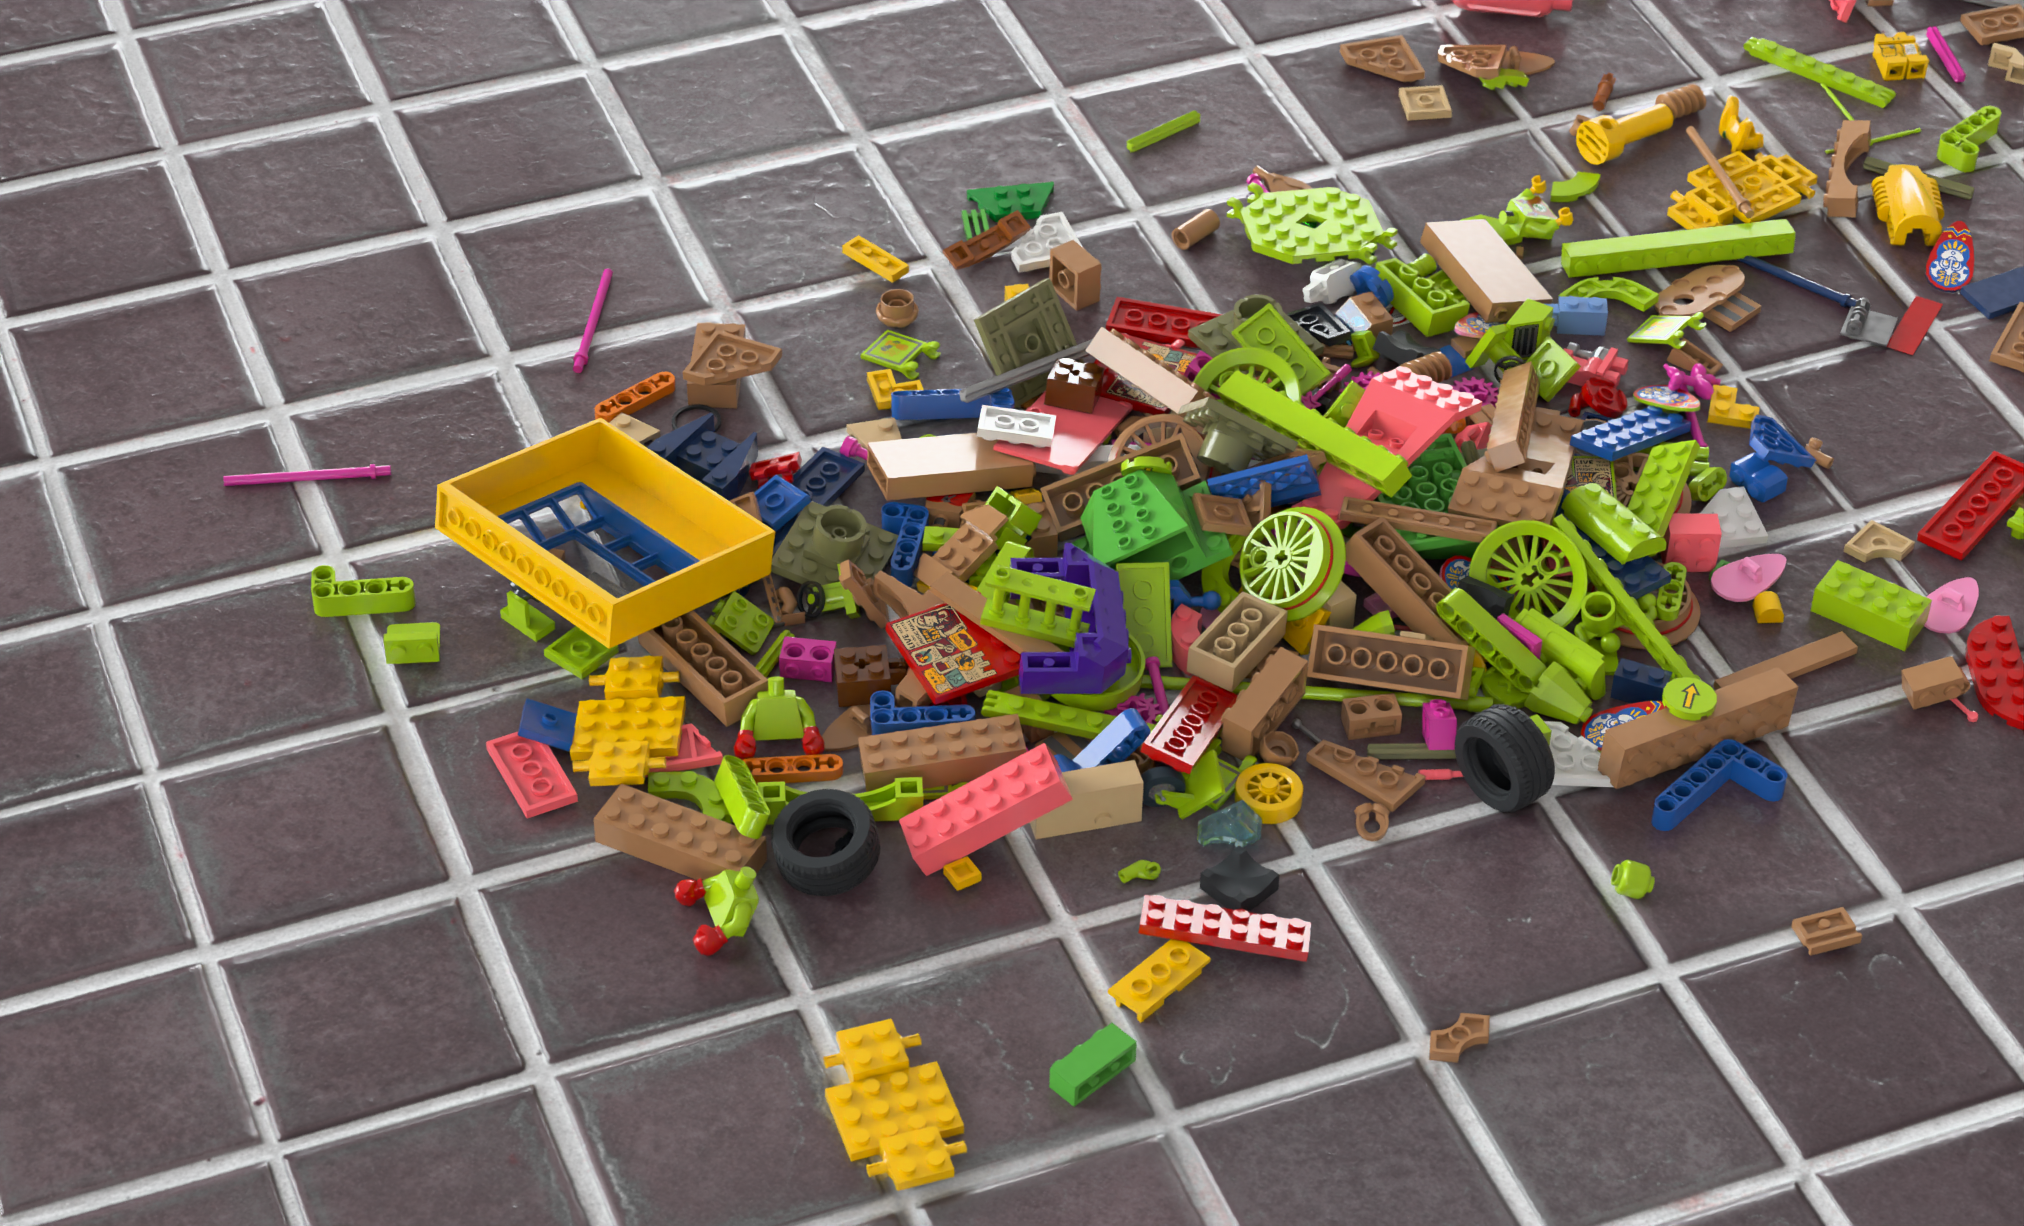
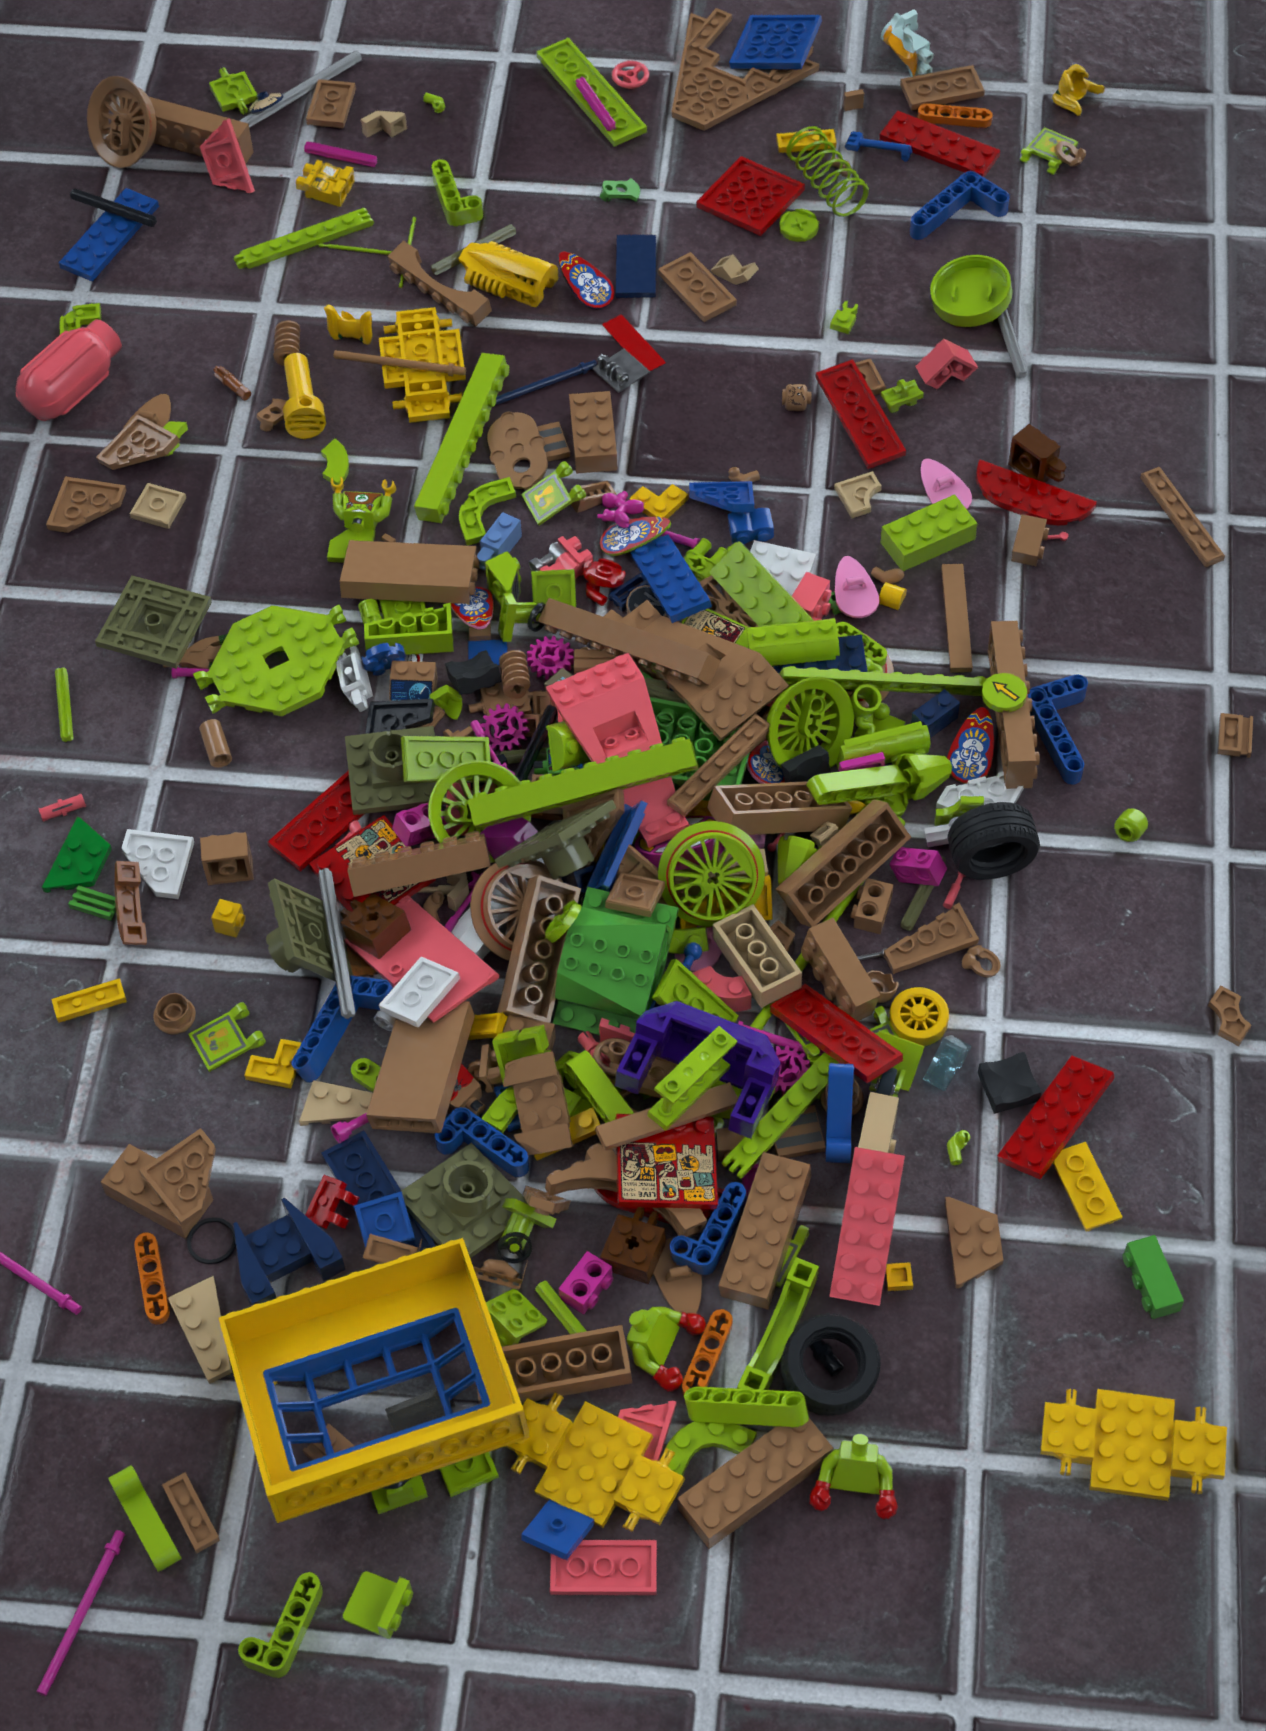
camera: 60 degrees left, 15 degrees up
(411, 473) = (144, 1518): none -> lime beam
(423, 506) = (191, 1512): none -> medium nougat plate
(1041, 918) = (973, 1240): none -> medium nougat wing
(1056, 170) = (76, 801): none -> coral pin
(1281, 134) = (153, 621): none -> olive piece
(1768, 330) = (593, 432): none -> medium nougat brick
(1790, 599) = (891, 576): none -> medium nougat arm
(1952, 451) = (796, 397): none -> medium nougat head

